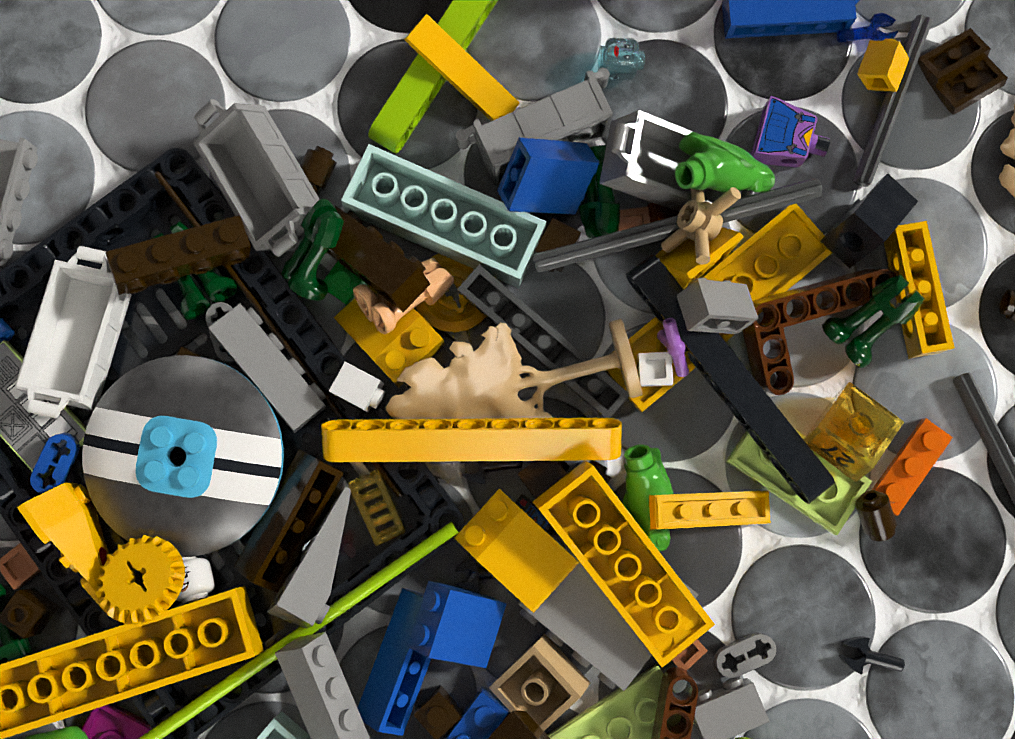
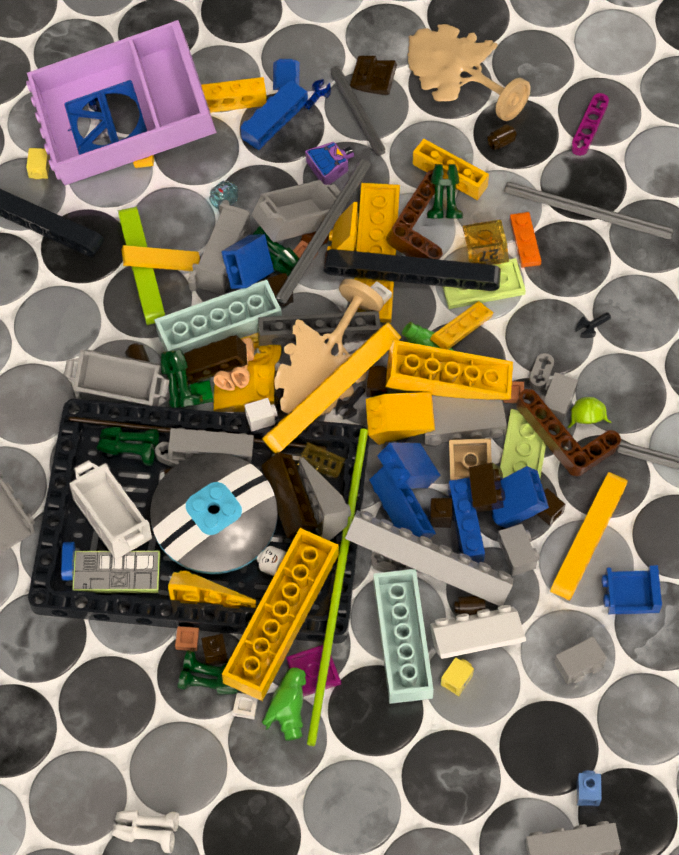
camera: 45 degrees left, 20 degrees down
(47, 460) = (153, 574): blue beam -> none
(162, 577) = (261, 577): yellow gear -> none
(178, 255) = (123, 430): dark brown brick -> none
(675, 346) = (375, 275): medium lavender piece -> none
(700, 222) = (332, 214): tan bar -> none
(717, 306) = (376, 243): light grey brick -> none
(720, 166) = (318, 188): bright green animal -> none
(869, 221) = (401, 160): black piece -> none
(876, 515) = (531, 267): dark brown brick -> none
(883, 65) = (338, 99): yellow brick -> none

